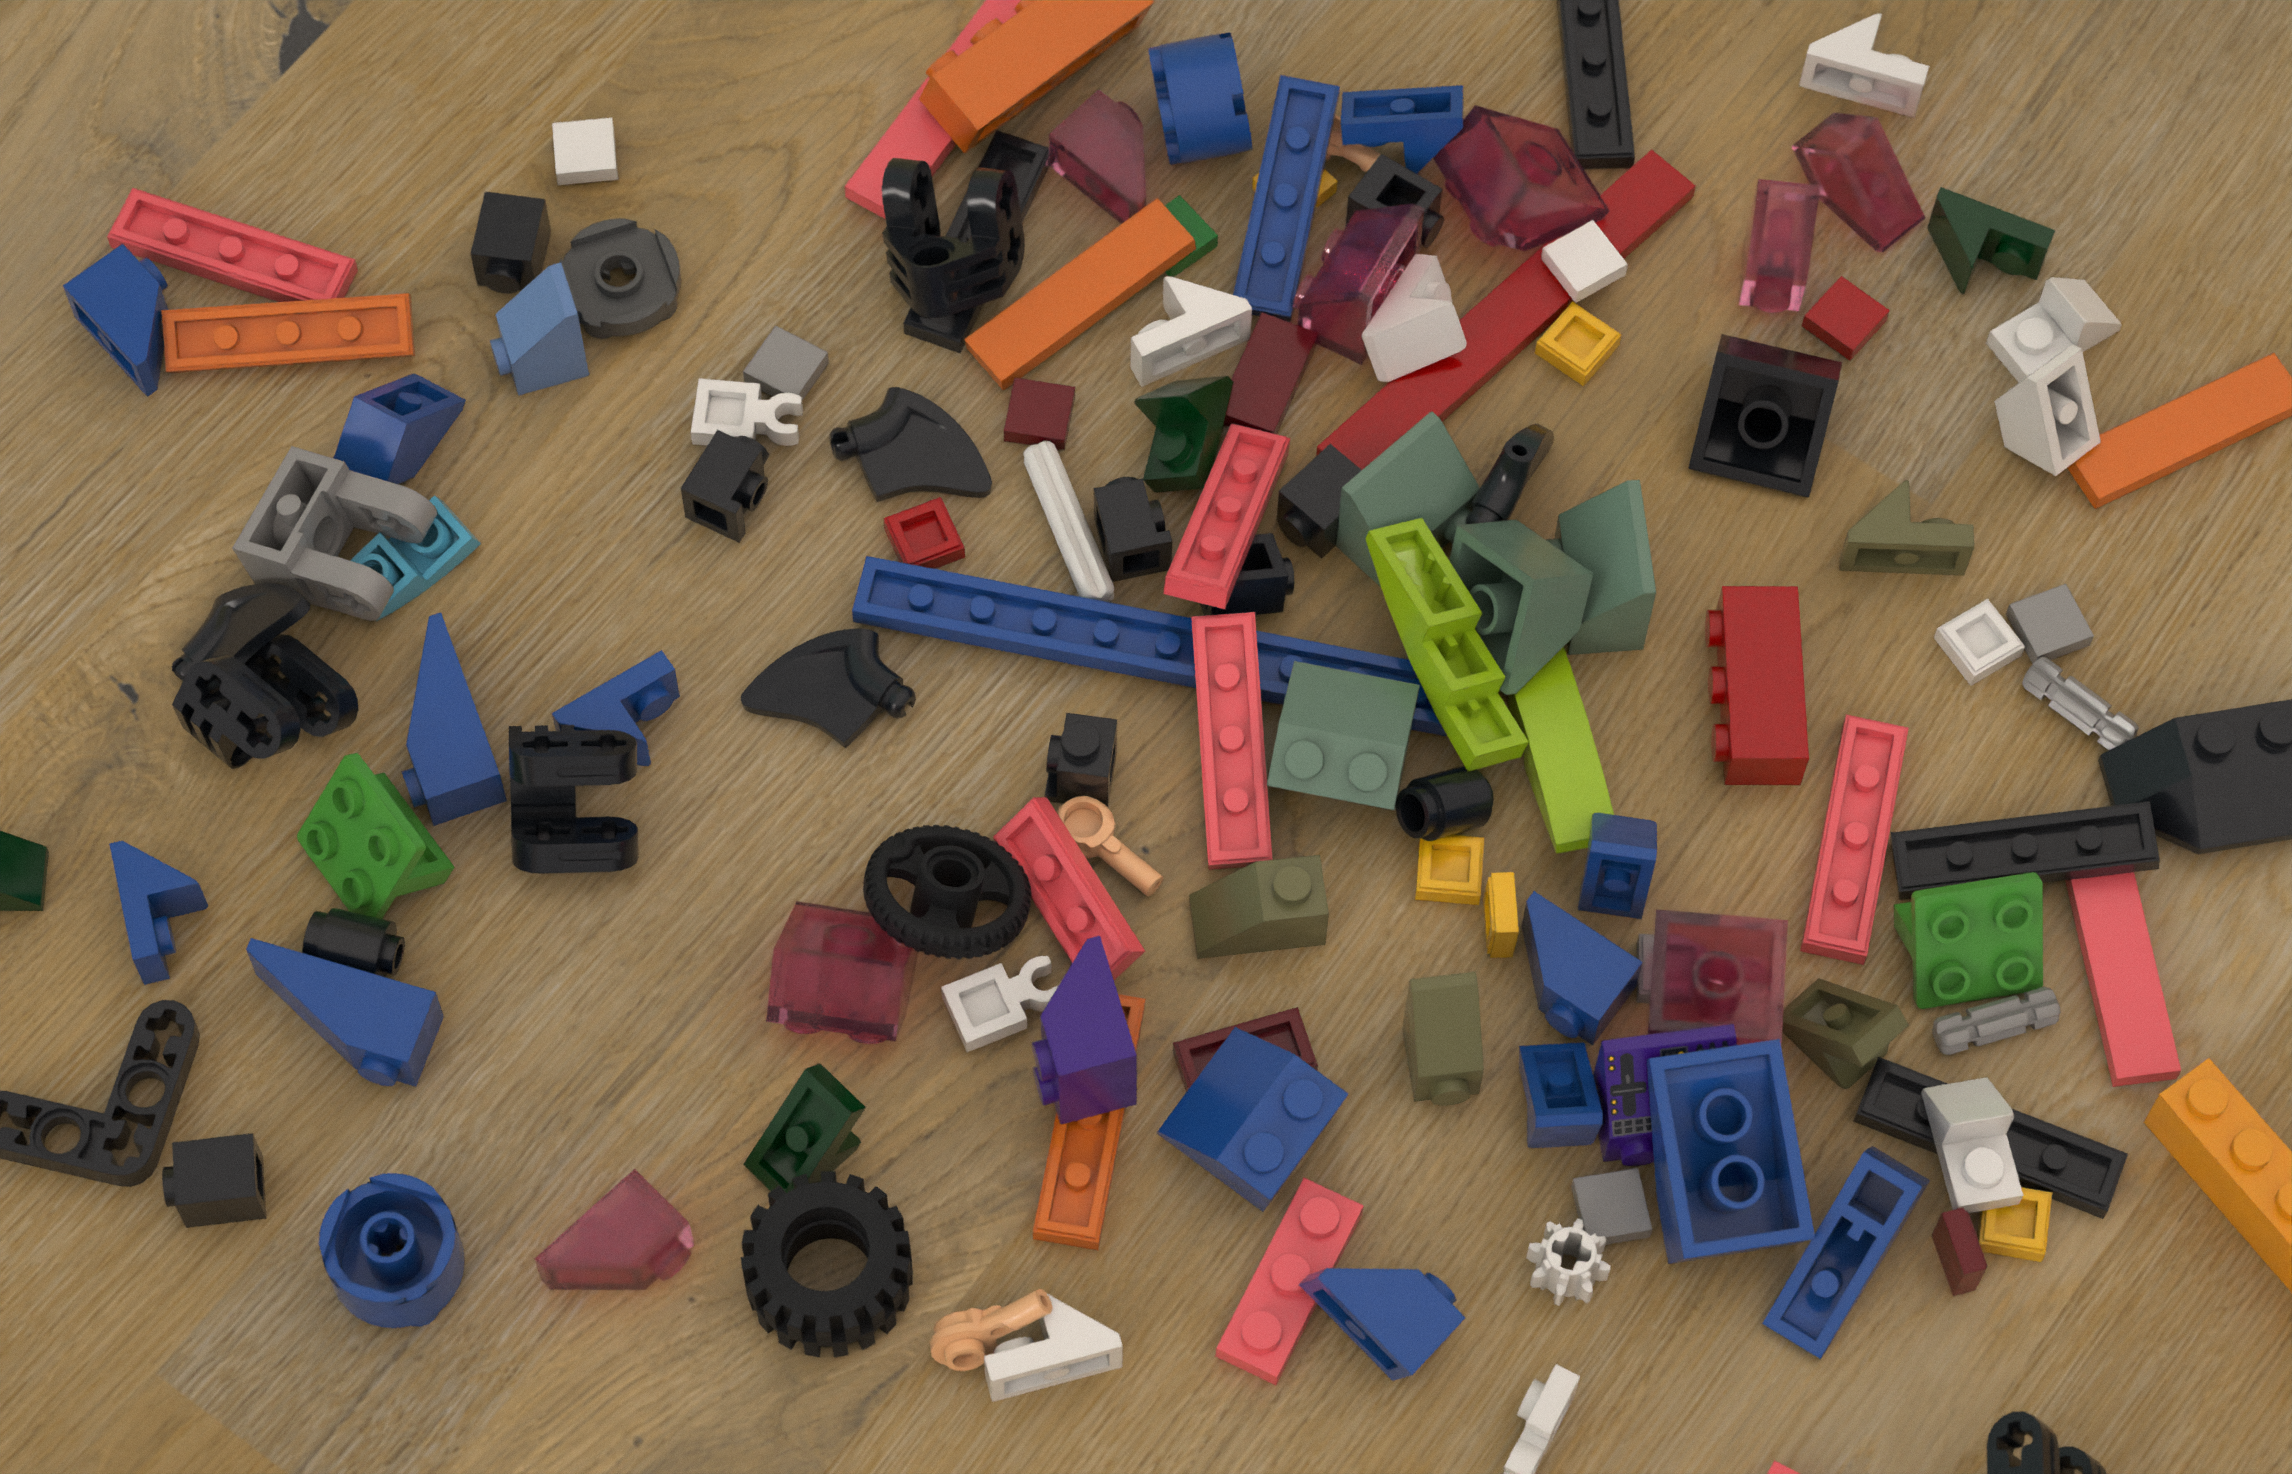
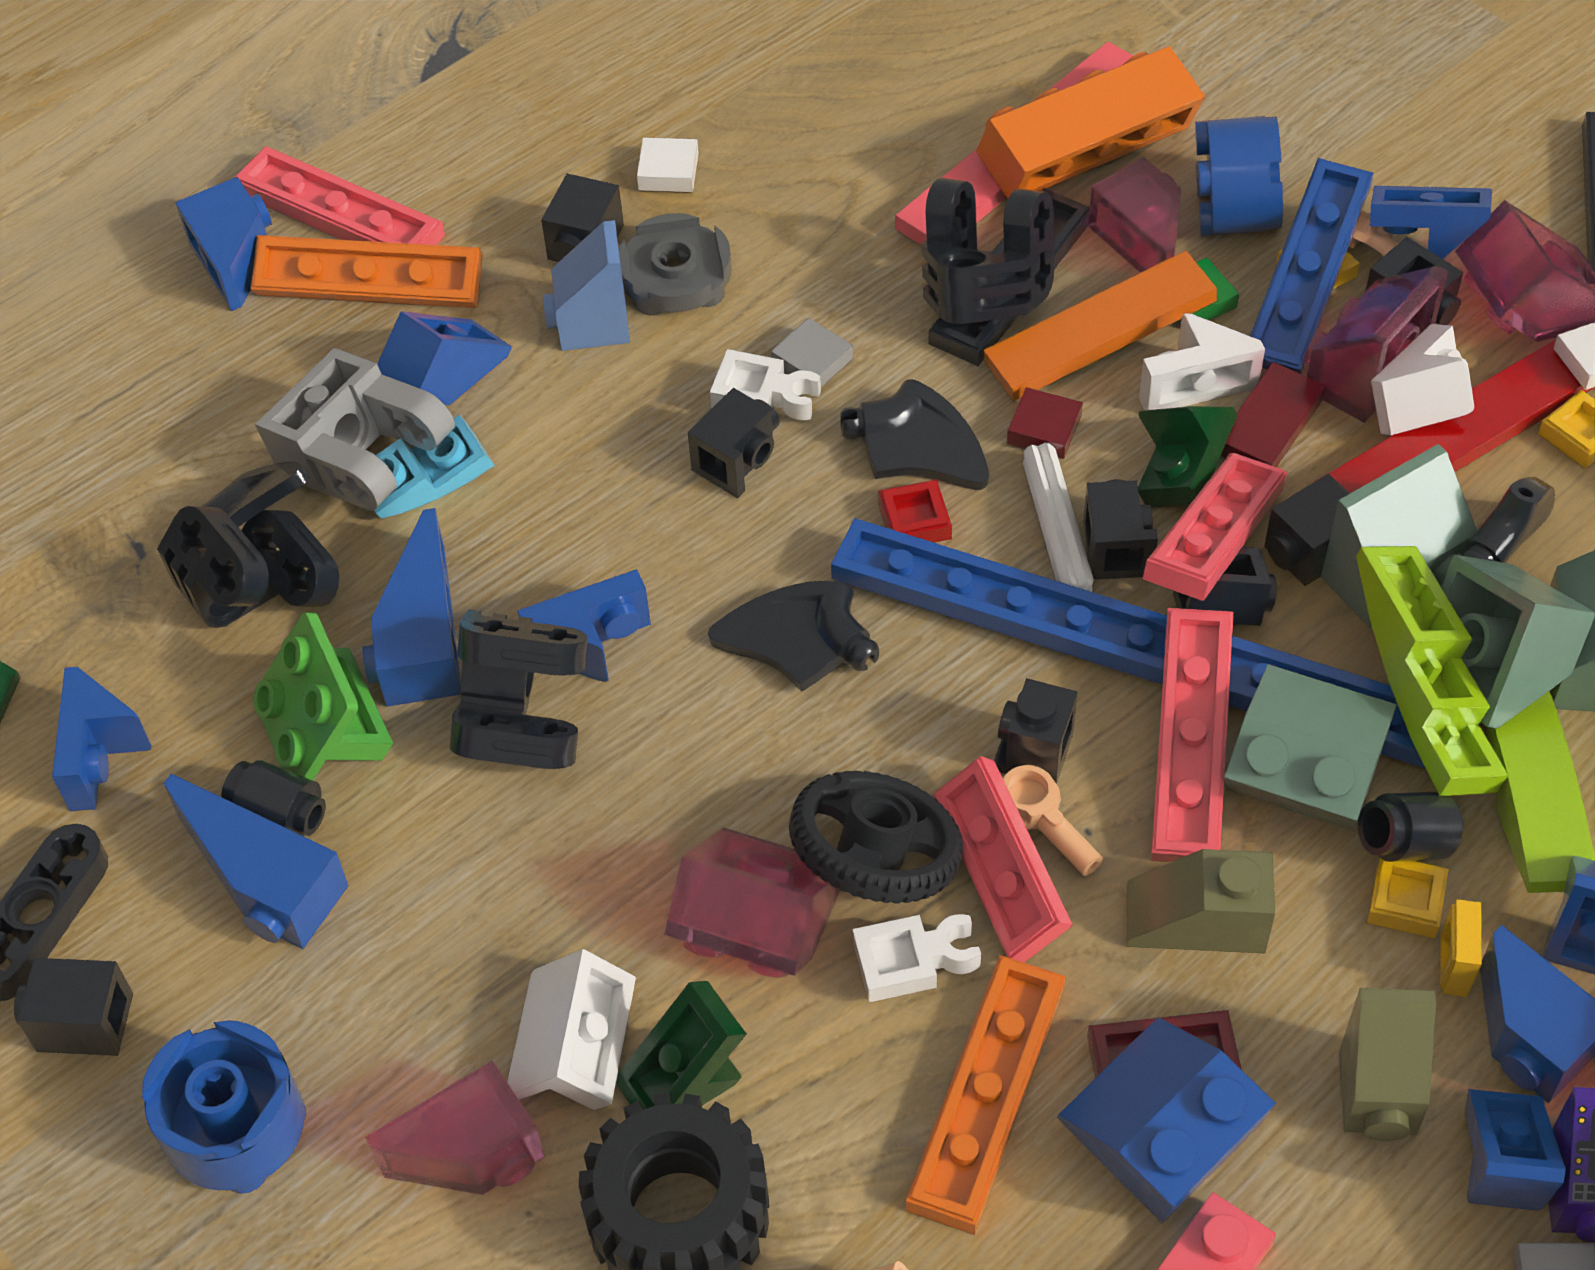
camera: 15 degrees right, 10 degrees down
(696, 1124) = (572, 1030): none -> white panel
(1085, 1044) = (993, 1003): dark purple slope -> none

